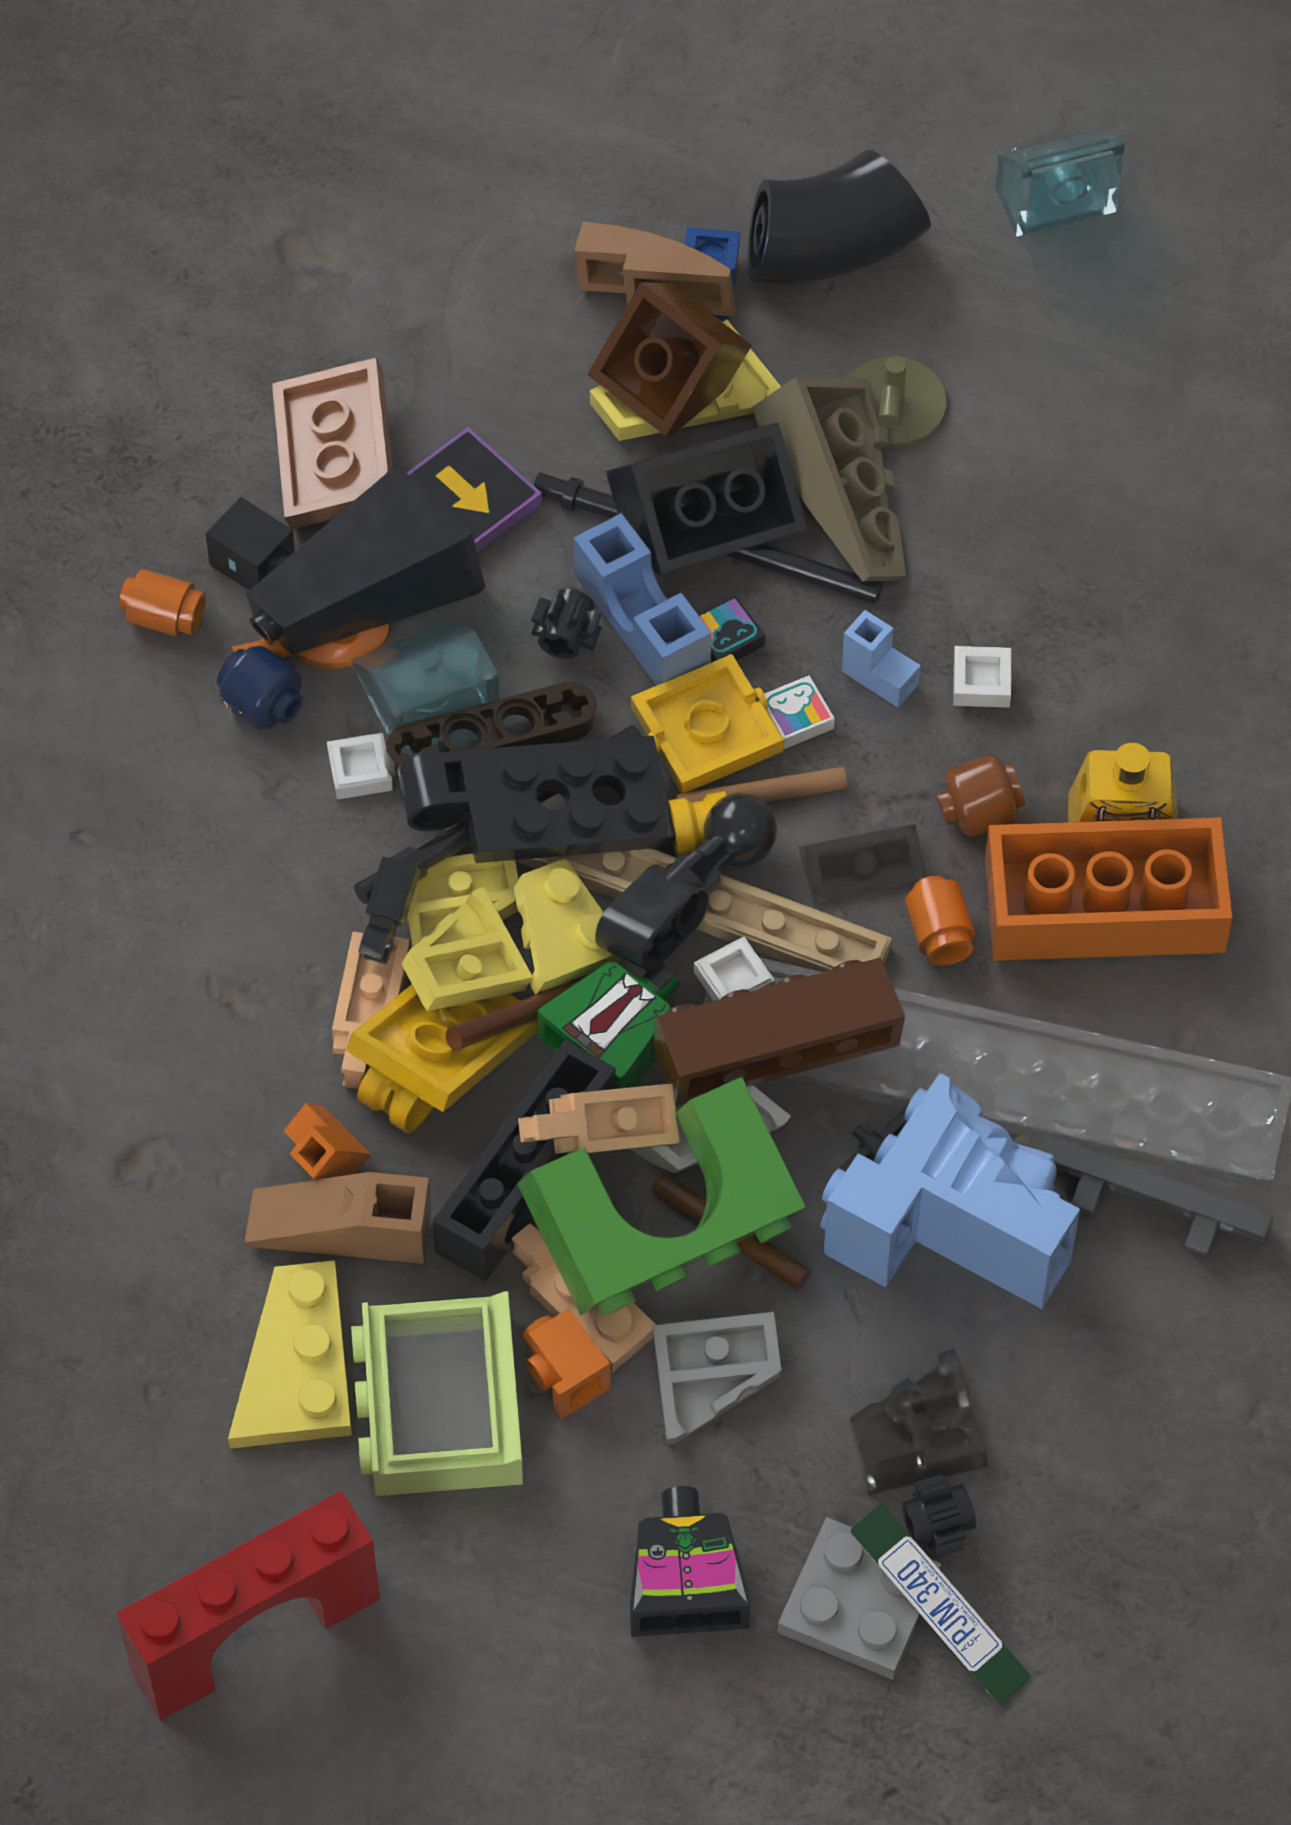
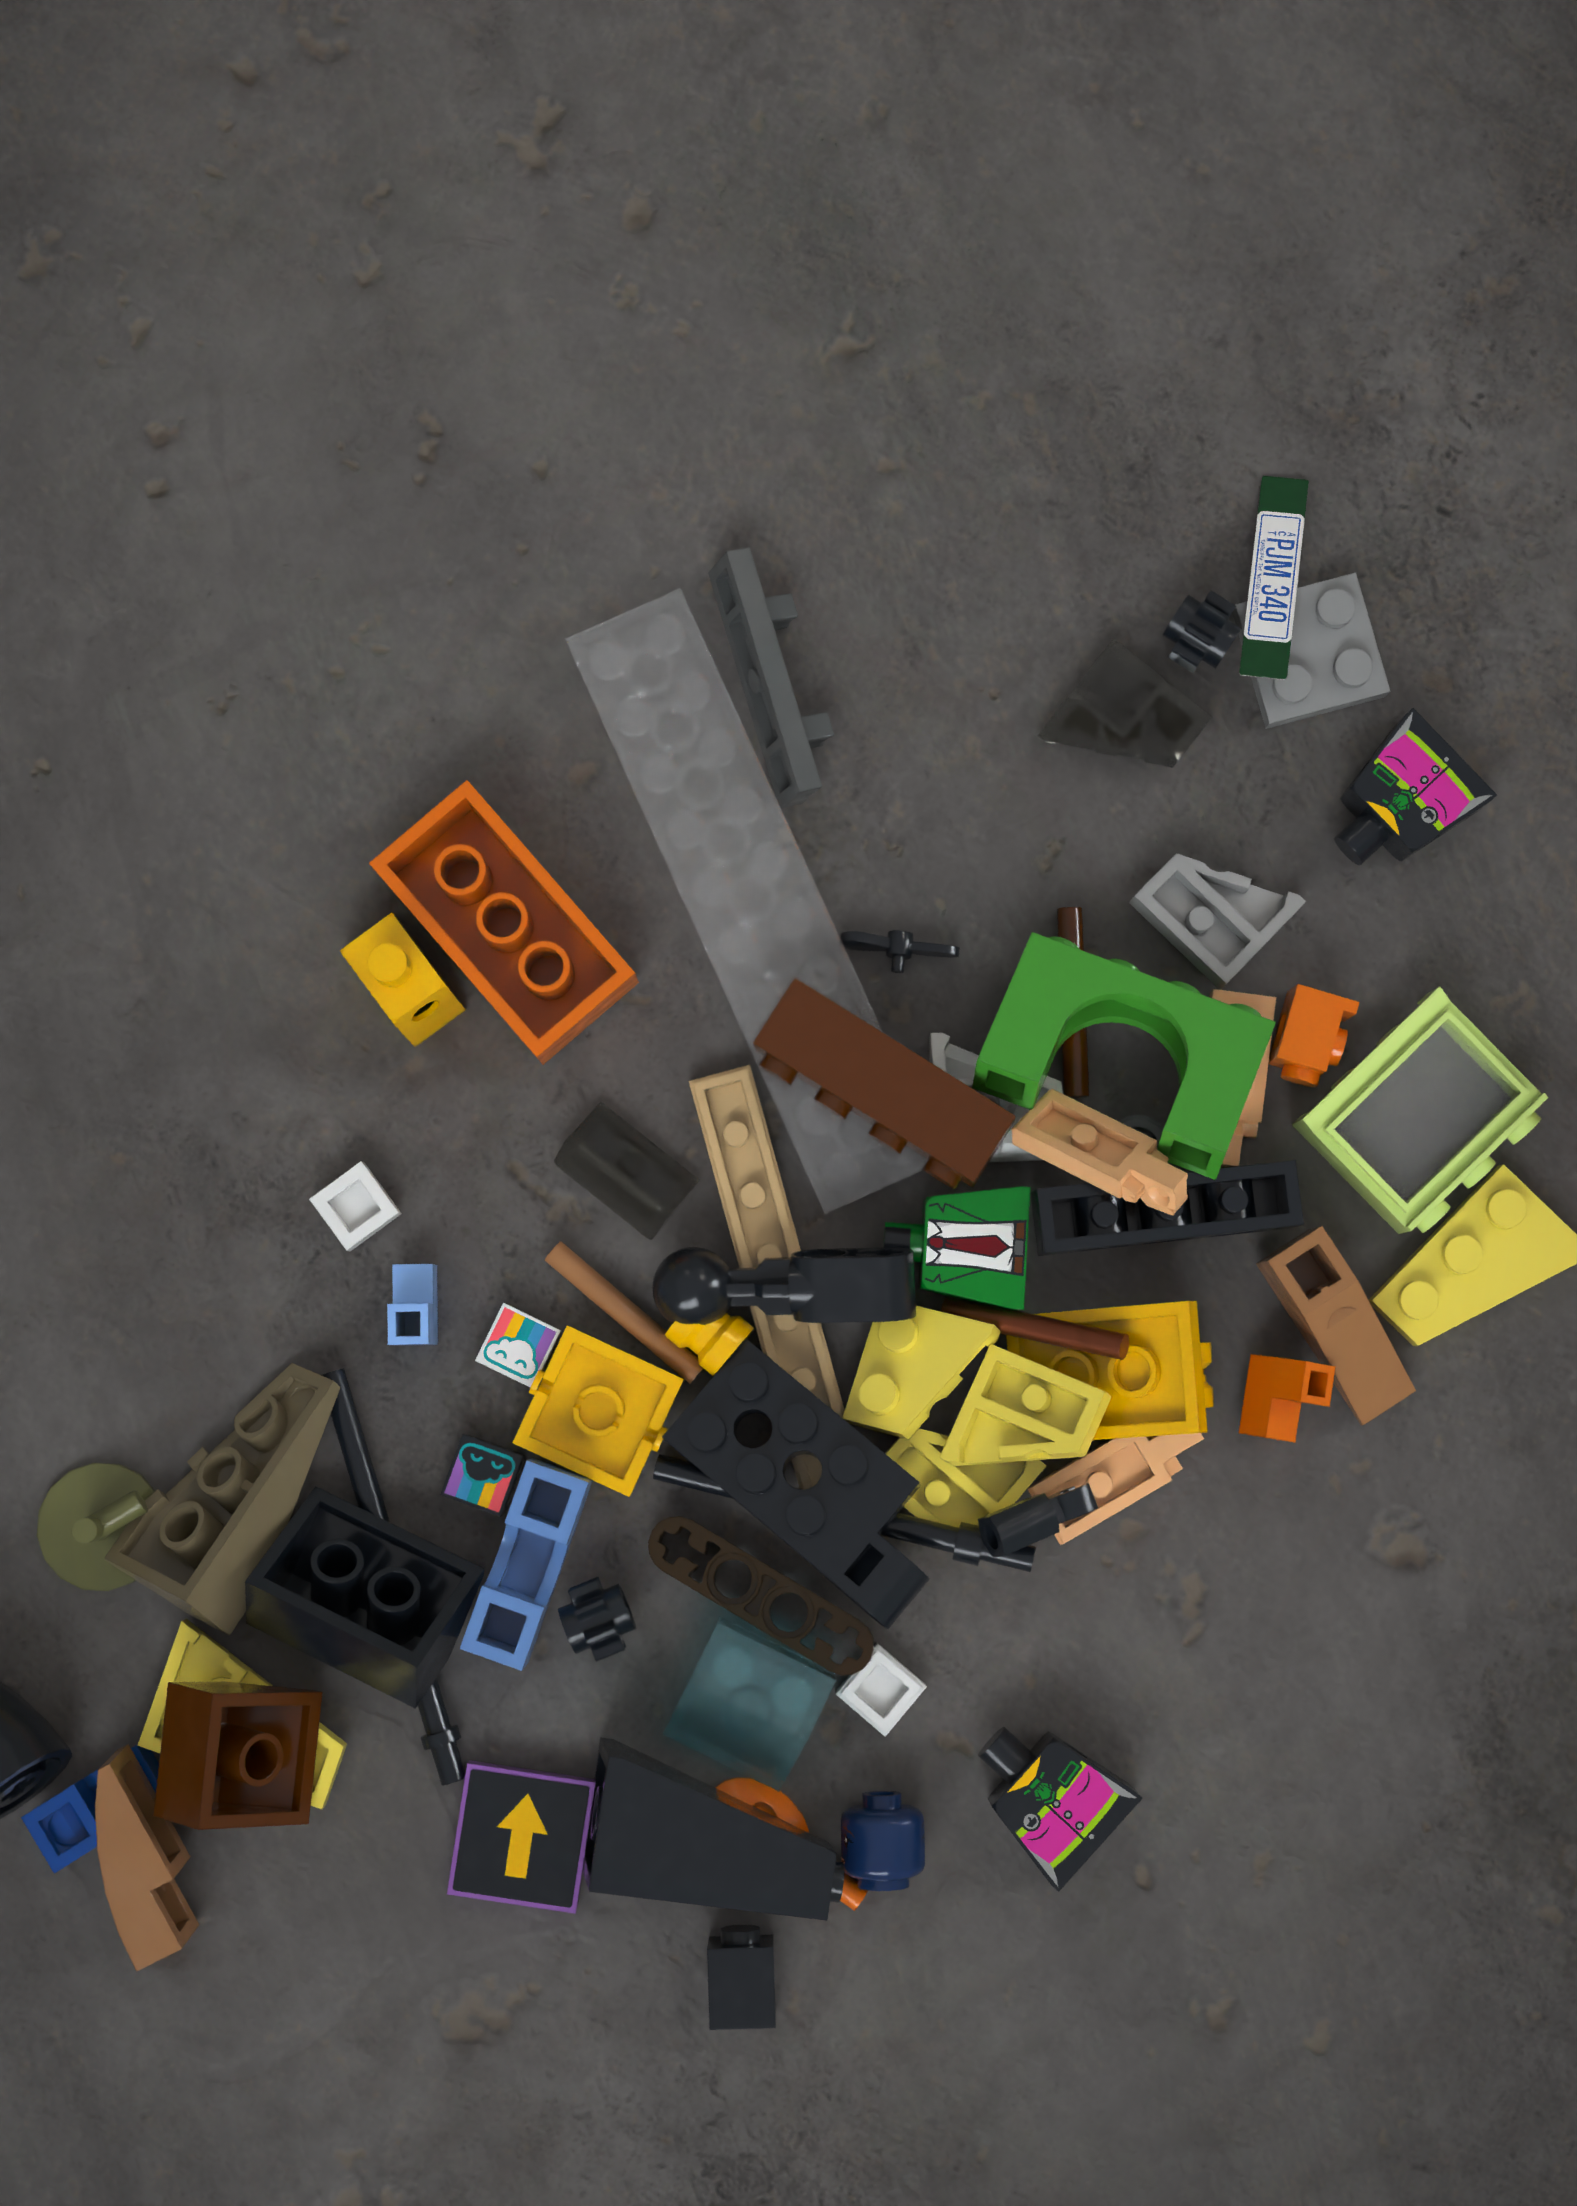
camera: 130 degrees left, 25 degrees up
(162, 603) = (865, 2011): orange brick -> none
(187, 807) = (1055, 1801): none -> torso
(330, 439) = (568, 2002): plate -> none
(732, 969) = (847, 1174): white tile -> none
(940, 920) = (641, 1049): orange brick -> none
(957, 1191) = (902, 822): light blue brick -> none
(980, 795) = (488, 1108): dark orange head -> none

